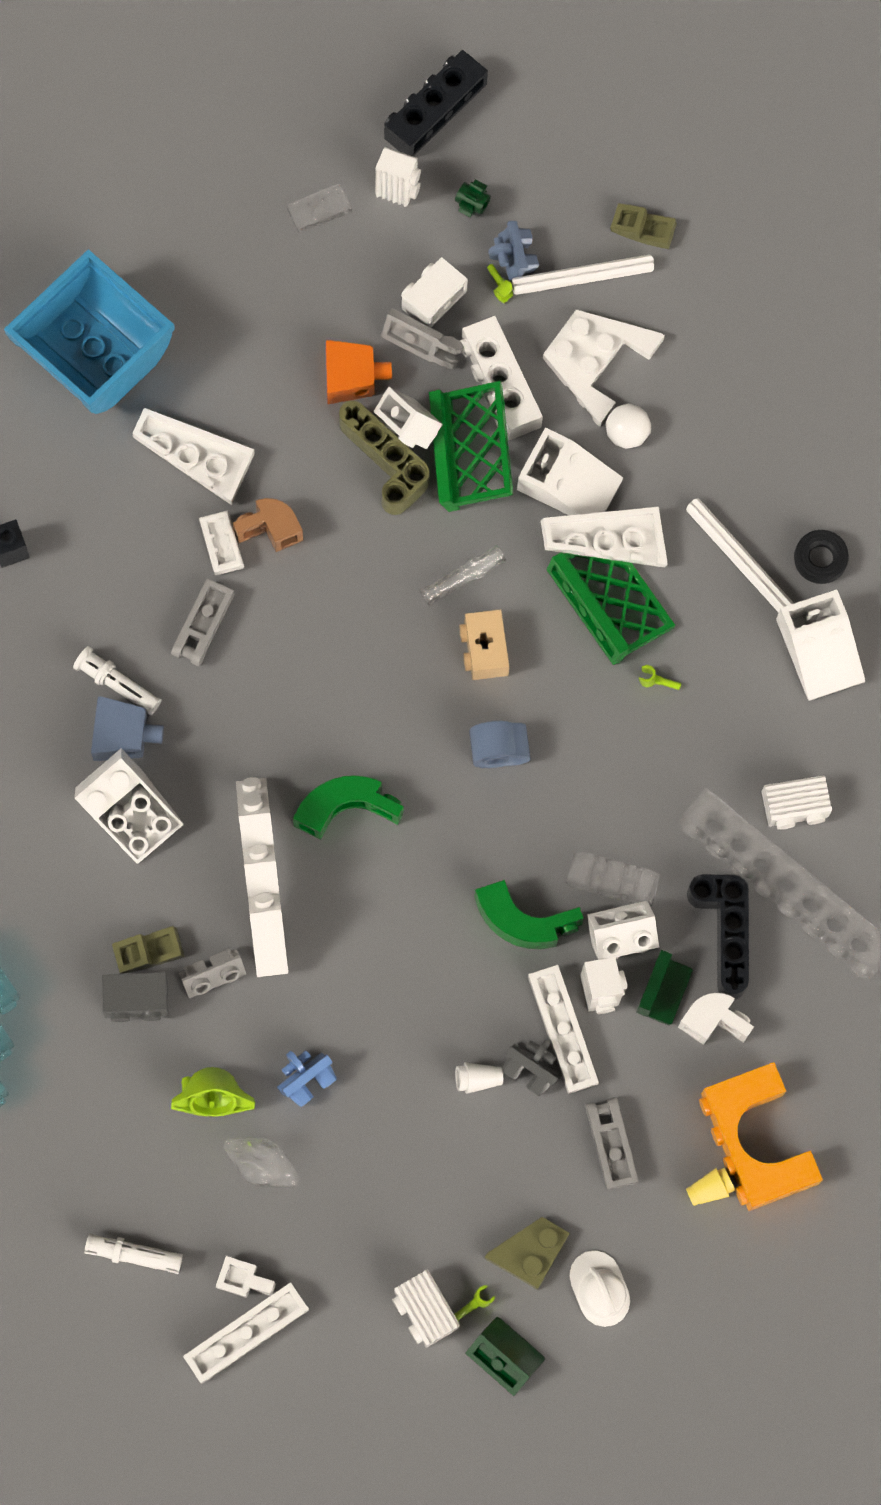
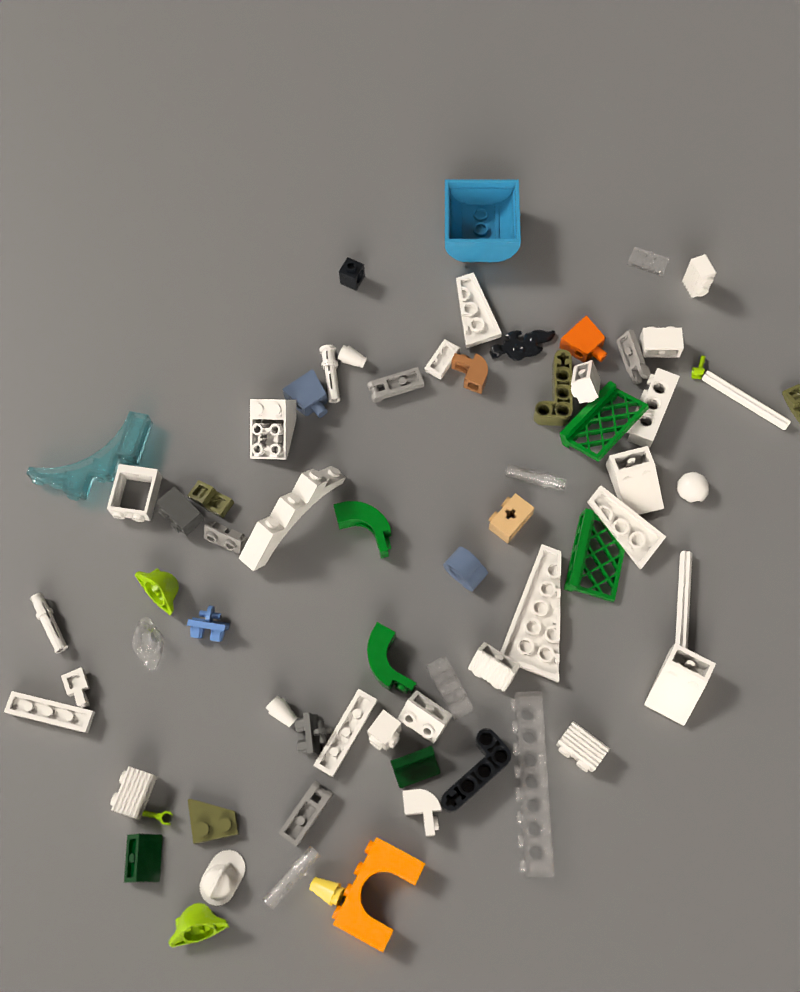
camera: 55 degrees right, 5 degrees down
(40, 1005) = (135, 473): none -> white window
(119, 639) = (352, 357): none -> white cone
(296, 440) = (520, 349): none -> black piece
(413, 137) = (754, 264): black brick -> none
(472, 198) = (727, 318): dark green gear -> none
(510, 251) = (719, 355): sand blue hips -> none
(586, 349) = (712, 434): white wing -> none
(627, 729) = (536, 624): none -> white wing
(627, 1349) = (196, 924): none -> lime hat
(634, 812) = (494, 666): none -> white brick
(656, 679) = (576, 615): lime hand -> none
(665, 1215) = (291, 877): none -> clear pin
(825, 539) = (721, 653): black tyre -> none

